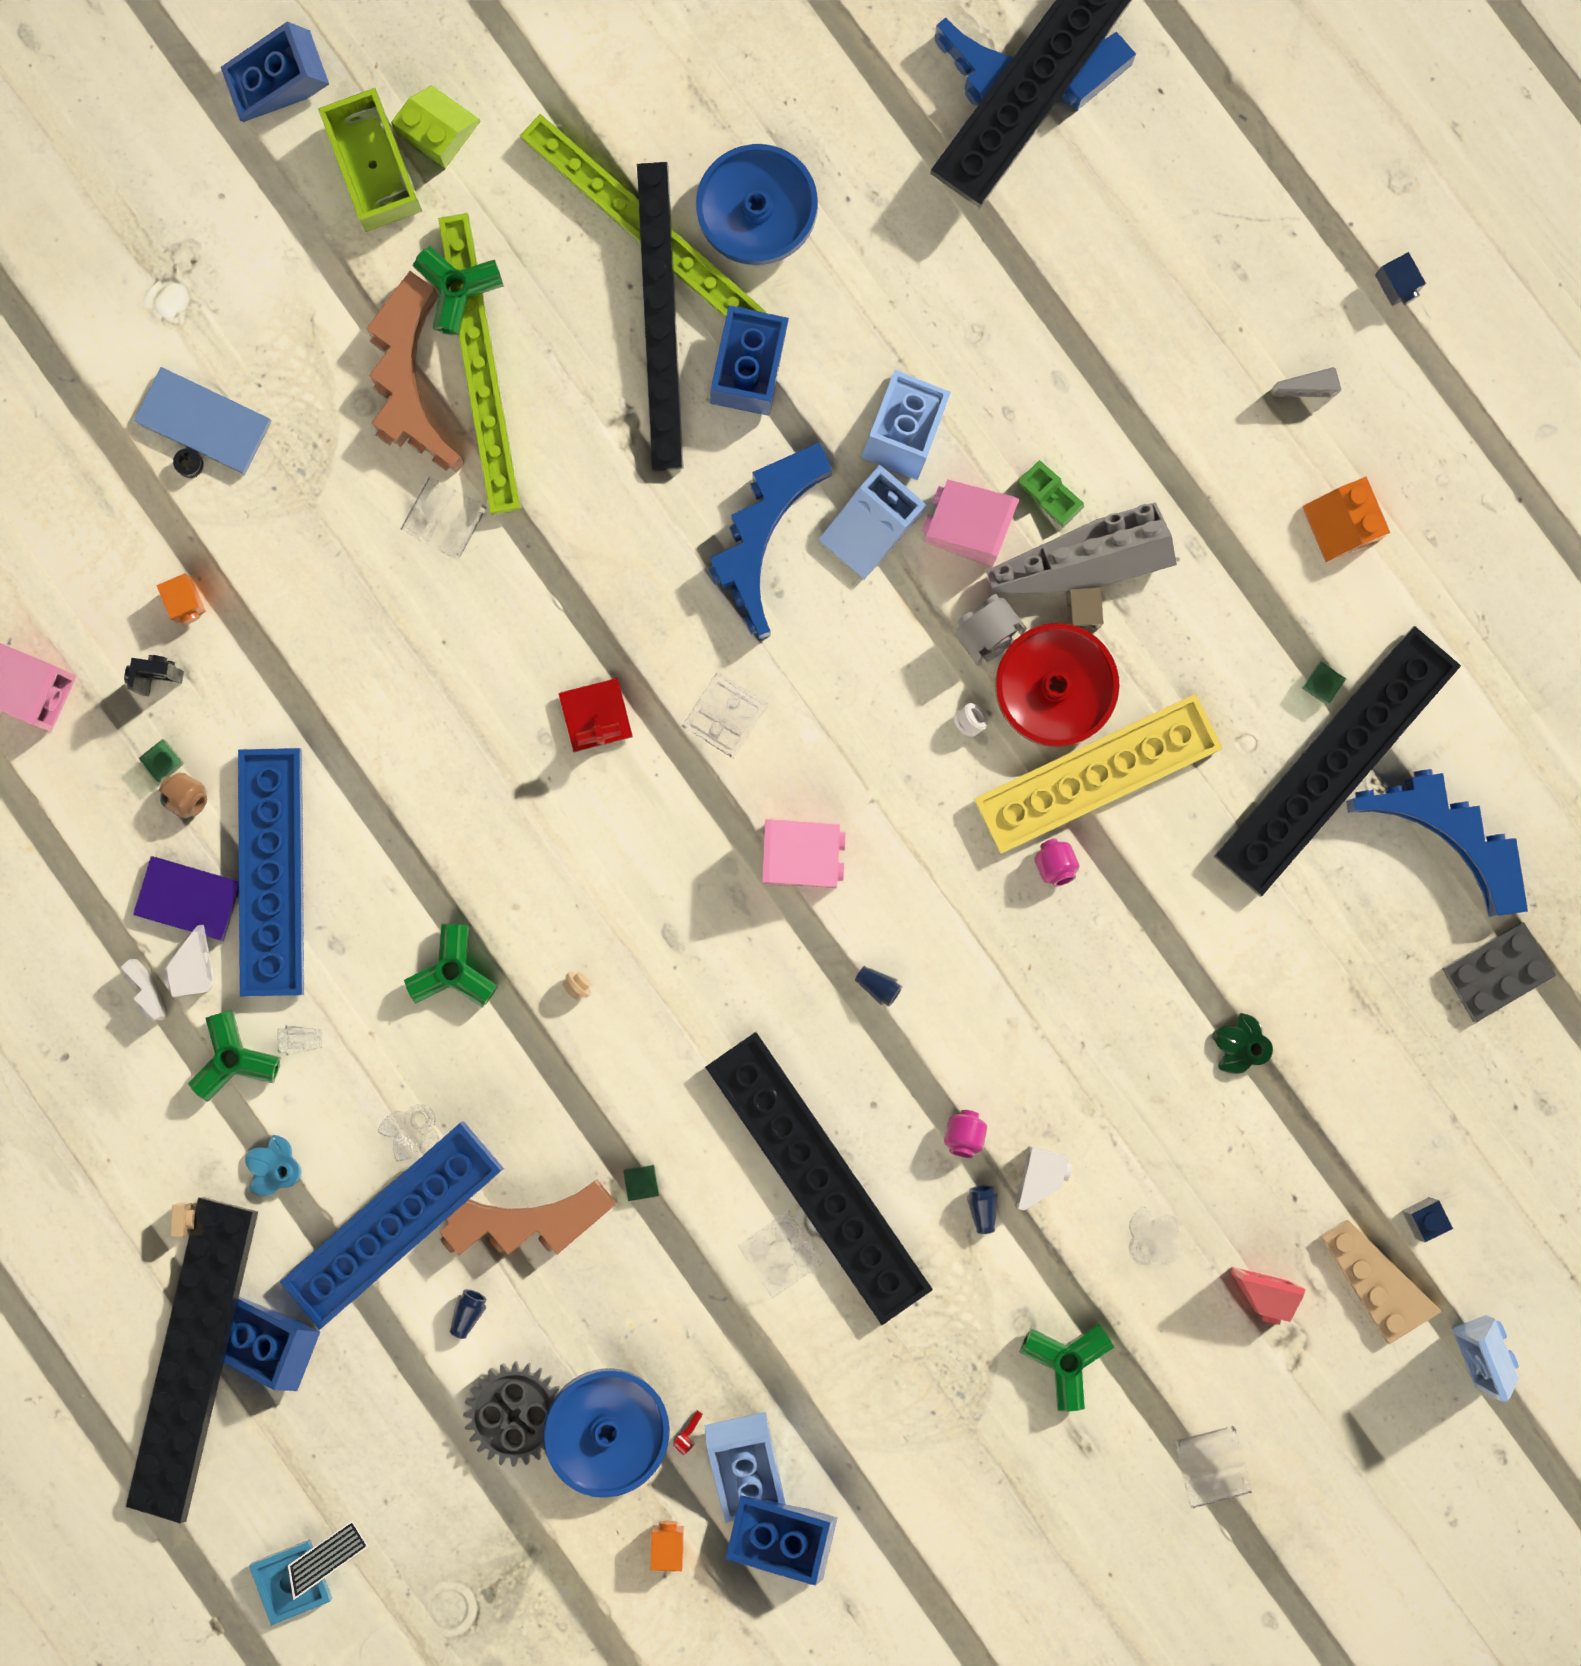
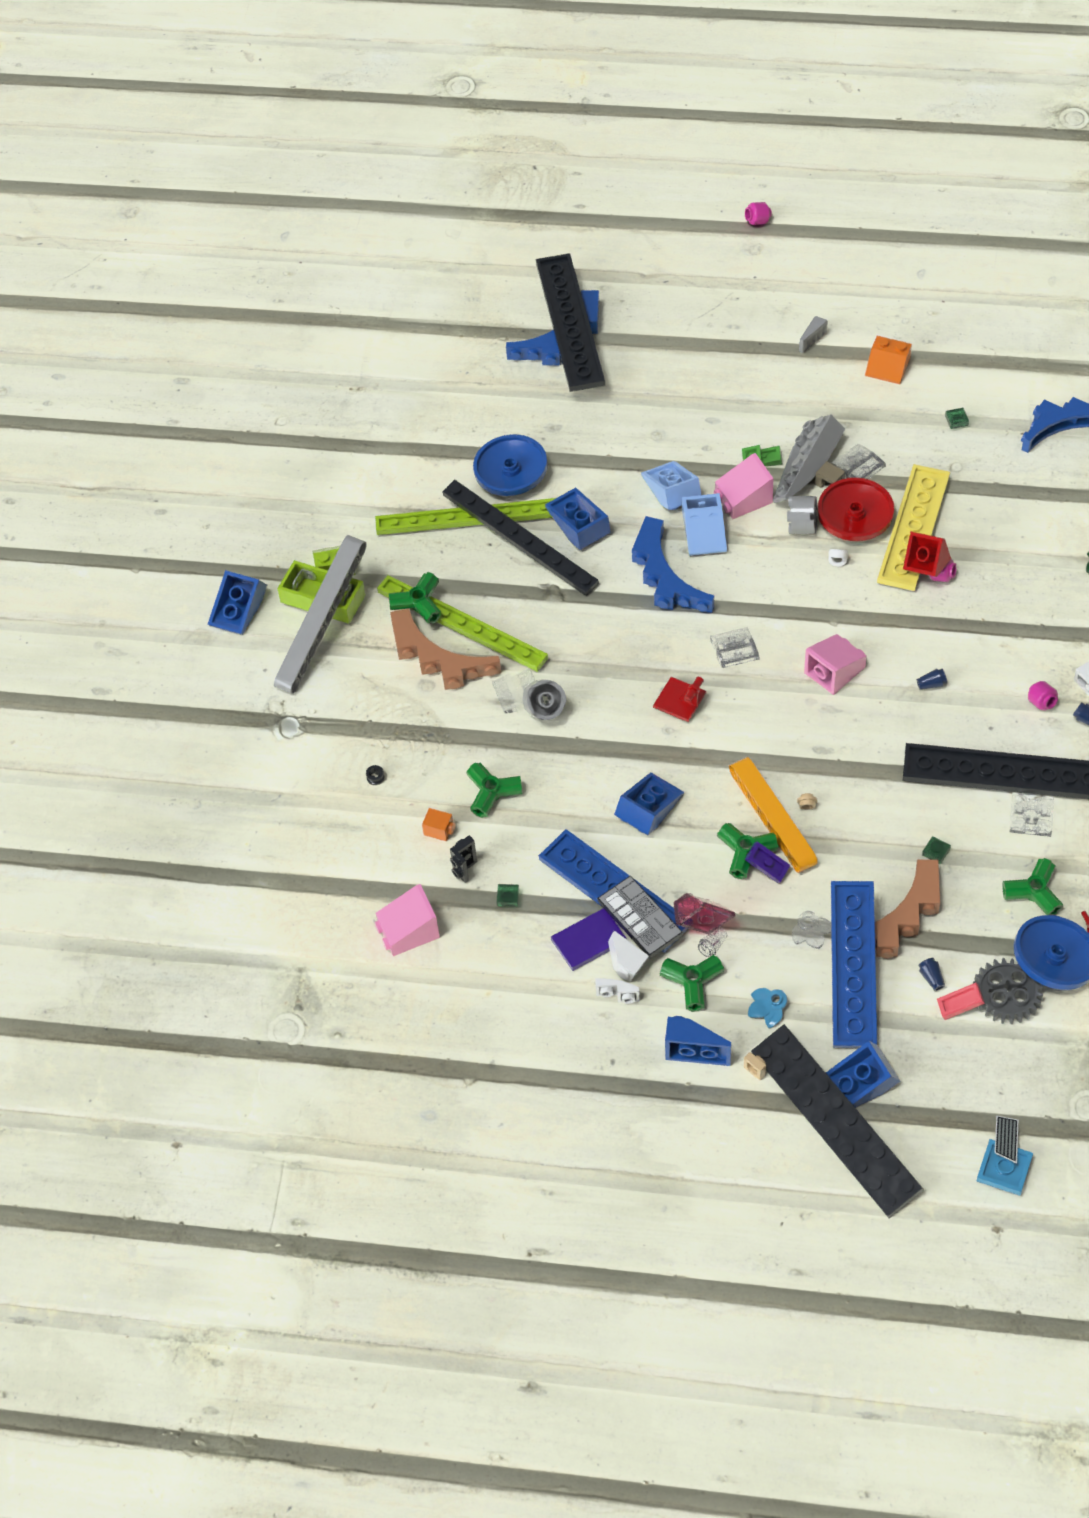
camera: 40 degrees left, 30 degrees down
(142, 1134) = (694, 1043): none -> blue slope
(183, 795) = (535, 897): medium nougat head -> none
(202, 420) = (358, 753): medium blue tile -> none
(252, 936) = (640, 917): none -> tile
(295, 625) = (486, 796): none -> green piece
(311, 1002) = (700, 913): none -> clear pink slope
(324, 196) = (320, 614): none -> light grey beam
(419, 808) = (647, 803): none -> blue slope
(443, 567) = (554, 704): none -> light grey brick
(449, 1014) = (767, 862): none -> dark purple plate
(454, 1374) = (960, 1001): none -> coral tile
(525, 961) = (773, 814): none -> light orange beam
(674, 1357) = (1043, 895): none -> green piece
(1043, 838) = (926, 554): none -> red slope
(1140, 624) = (859, 462): none -> clear slope
(1337, 761) = (999, 439): black plate -> none
(1401, 280) = (799, 273): dark blue brick -> none
(1461, 134) = (758, 213): none -> dark pink head

